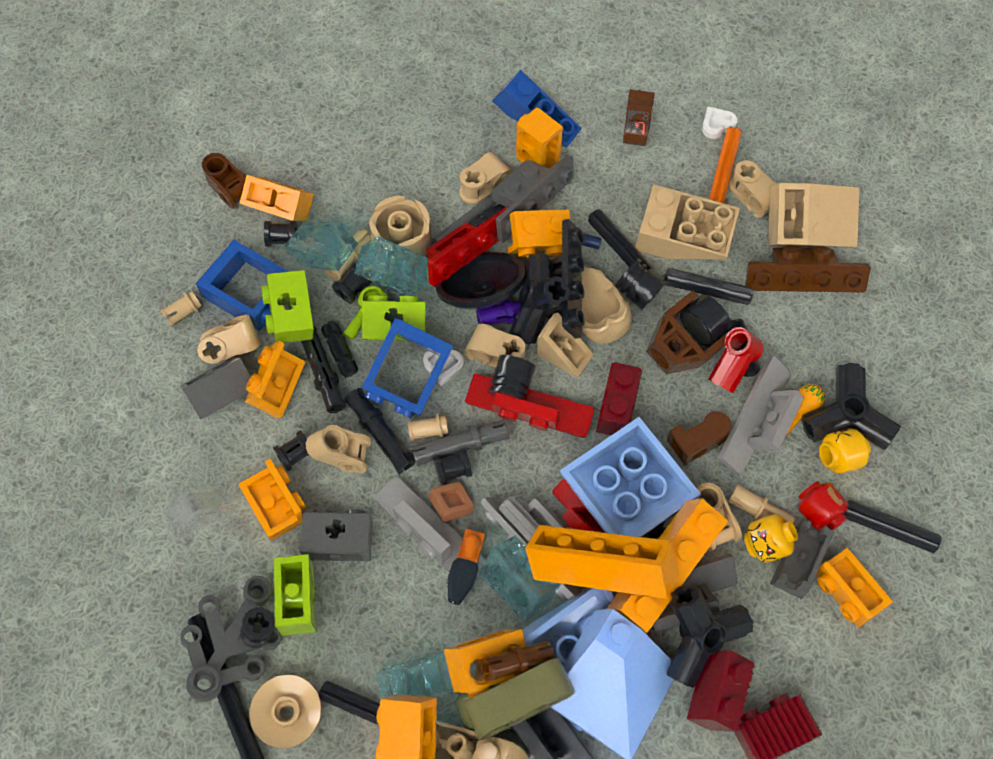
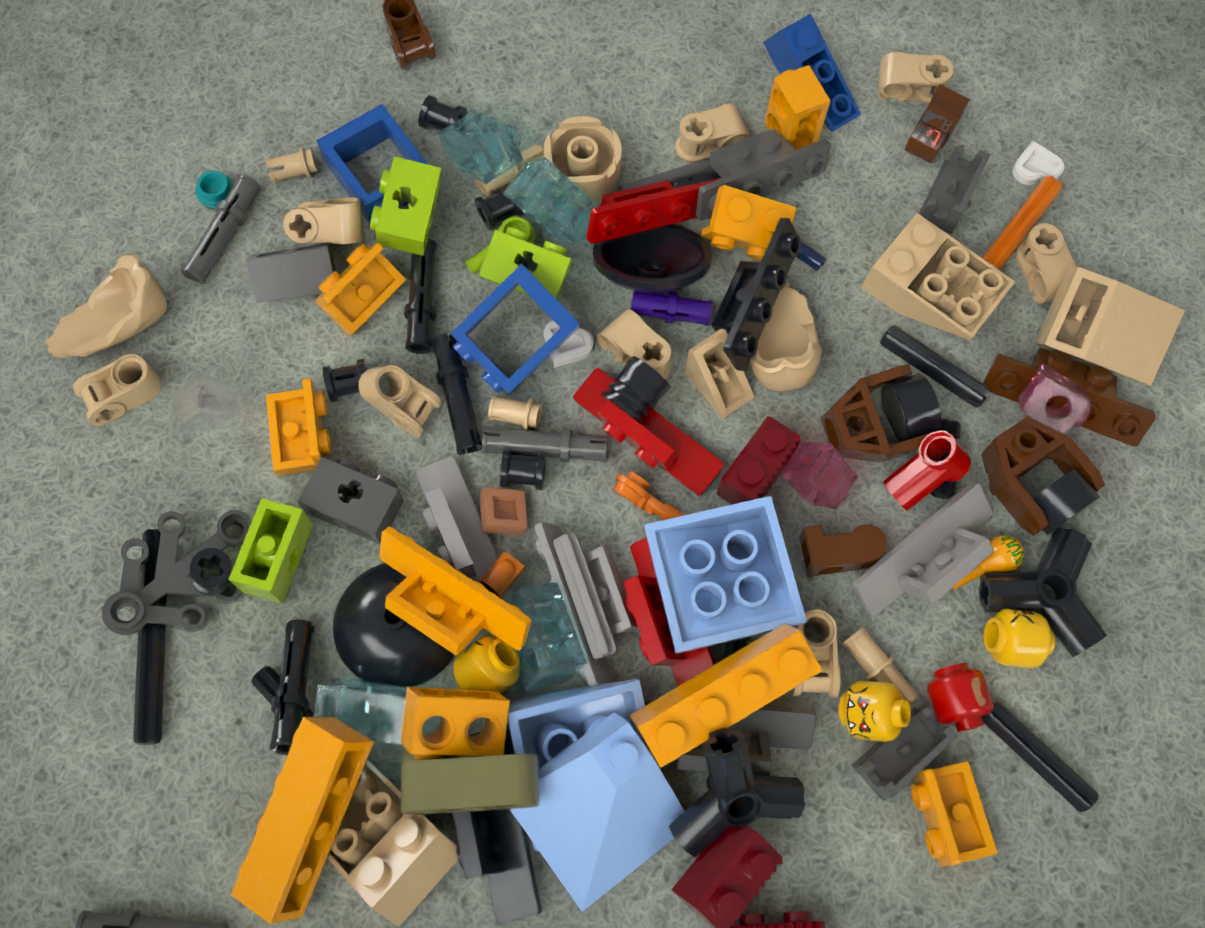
camera: 20 degrees right, 5 degrees up
(90, 467) = (114, 313): none -> tan hair
(118, 524) = (115, 389): none -> tan piece
(128, 347) = (212, 188): none -> teal plate
(152, 342) = (228, 216): none -> dark grey pin
(272, 699) = (188, 669): tan dish -> none
(276, 198) = (453, 72): light orange brick -> none
(339, 349) = (452, 279): black axle -> none
(358, 698) = (291, 699): none -> black pin
(408, 635) = (378, 649): none -> black dish
(442, 578) = (445, 601): none -> light orange bracket
(489, 614) = (487, 665): none -> yellow head
(515, 660) = (484, 737): reddish brown pin -> none
(538, 297) = (710, 302): black piece -> none
(539, 450) = (635, 490): none -> orange plate
(603, 561) = (641, 659): light orange brick -> none
(605, 91) = (911, 77): none -> tan piece
(616, 239) = (846, 274): black axle -> none
(640, 284) = (847, 332): black piece -> none
(663, 390) = (819, 474): none -> clear pink brick
(668, 159) = (953, 189): none -> dark grey hinge
(790, 272) = (1047, 385): none -> clear pink brick
(791, 324) = (1022, 450): none -> reddish brown piece

